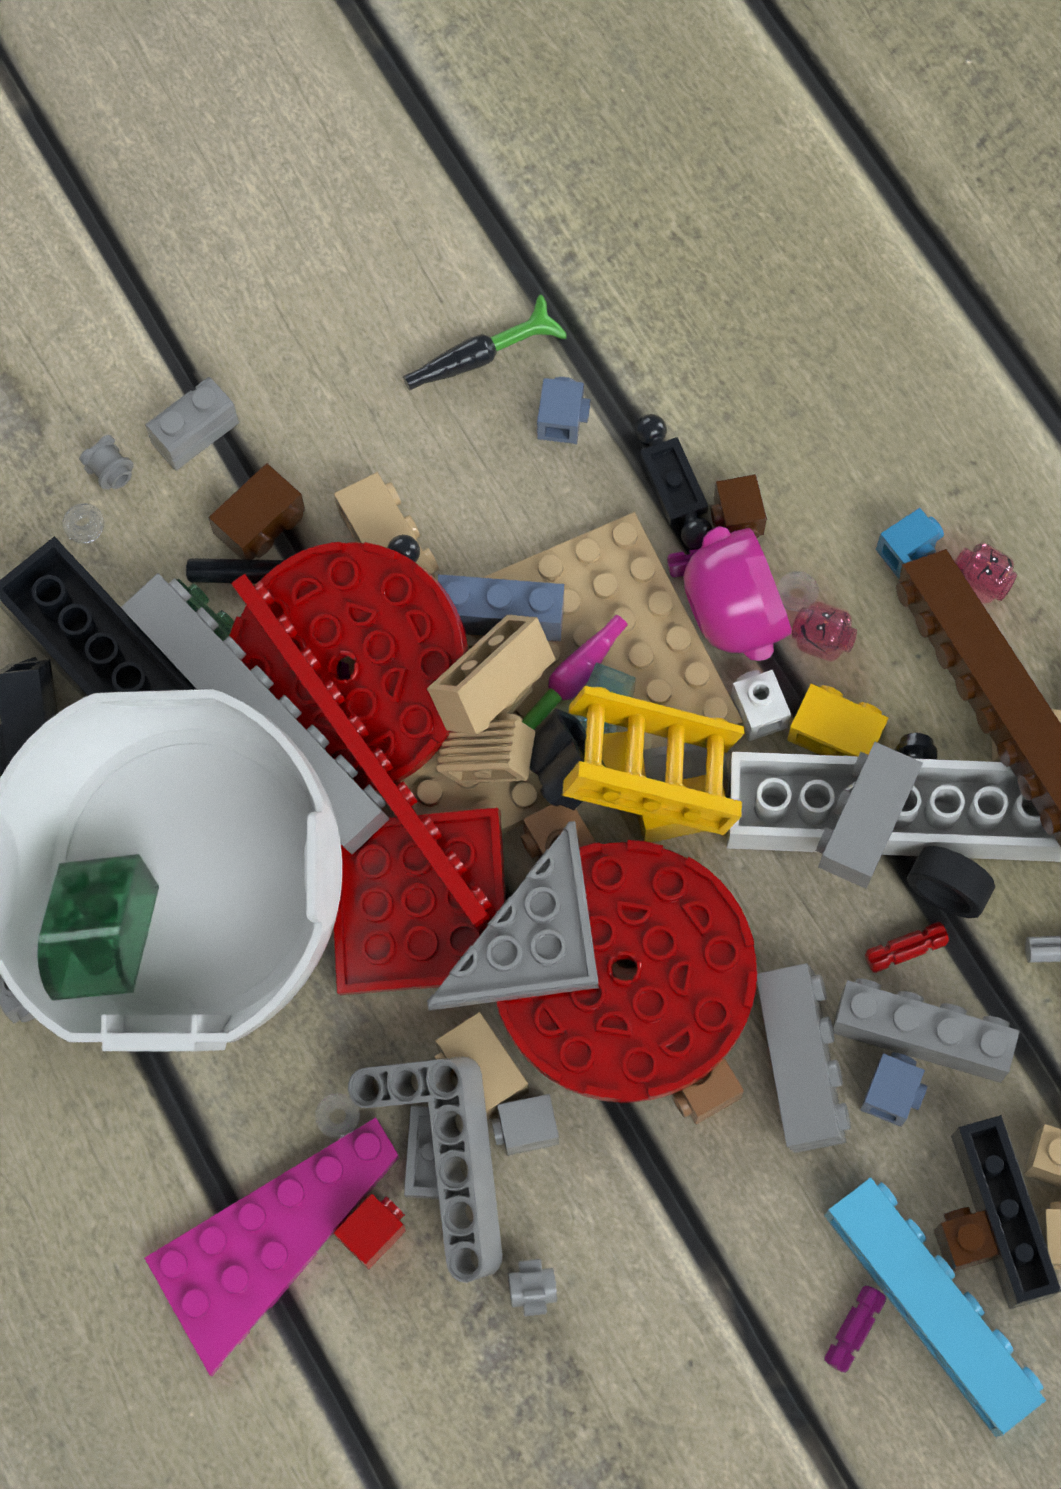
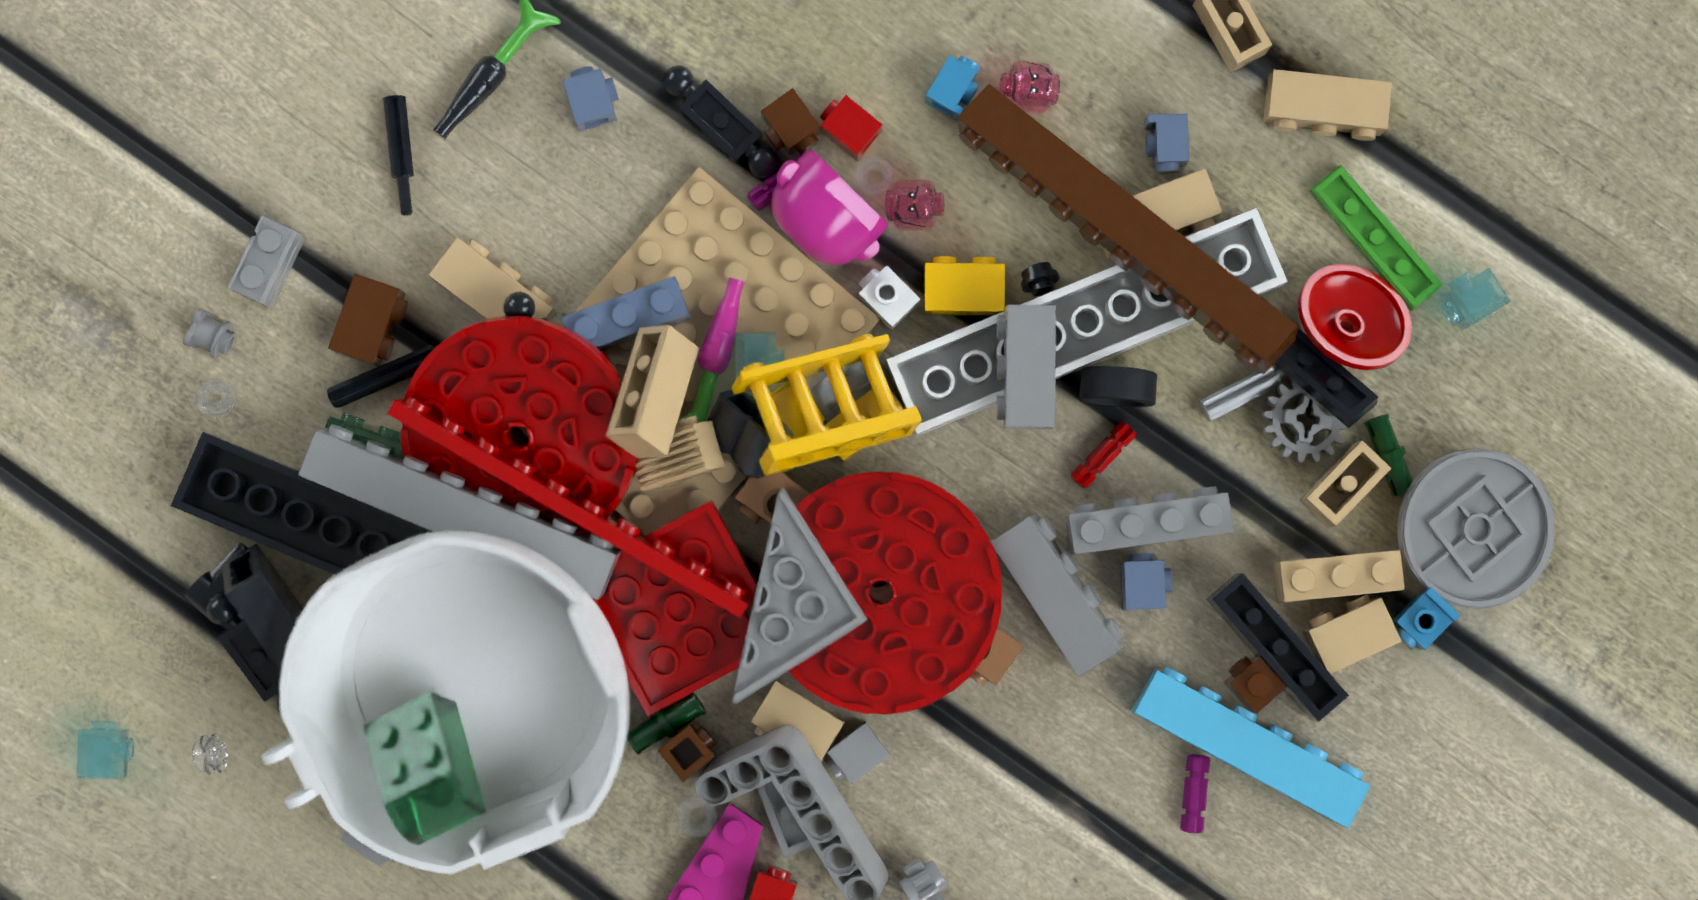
camera: 30 degrees left, 15 degrees up
(351, 1009) = (665, 723): none -> dark green pin
(360, 1042) = (688, 751): none -> reddish brown brick
(364, 380) = (399, 148): none -> black axle
(794, 536) = (850, 126): none -> red brick

